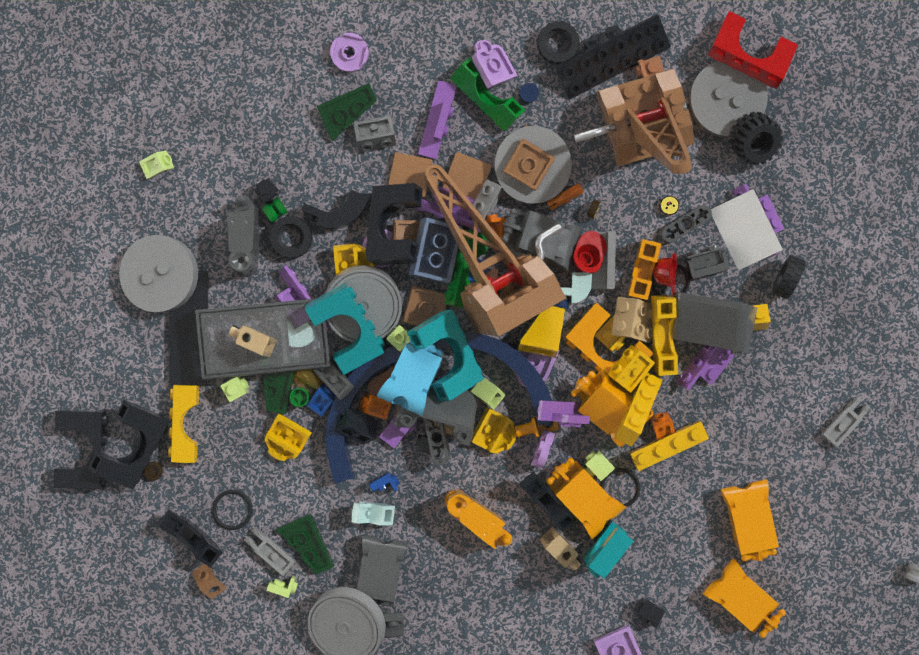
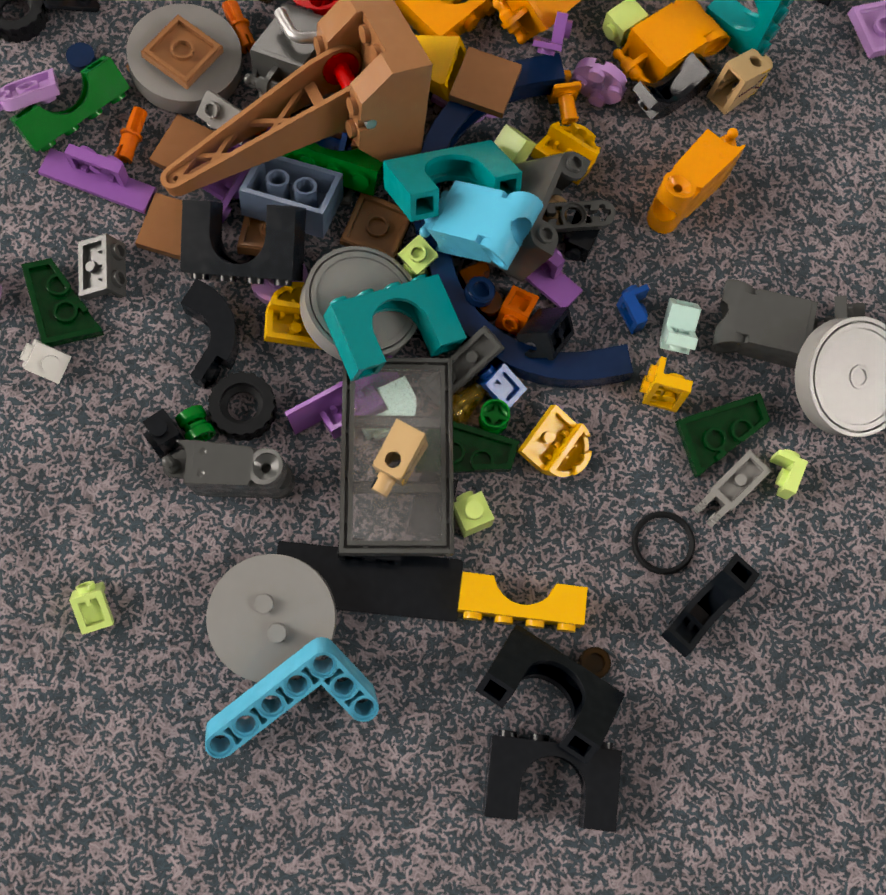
camera: 90 degrees left, 15 degrees down
(116, 288) = (290, 692): none -> medium azure beam
(206, 580) = (774, 591): medium nougat bracket -> none
(306, 108) = (44, 361): none -> white bracket
(326, 506) = (663, 389): none -> yellow bracket
(377, 379) = (479, 291): none -> dark blue tile
(473, 137) = (131, 135): none -> orange axle
(527, 371) = (485, 82): none -> medium nougat tile

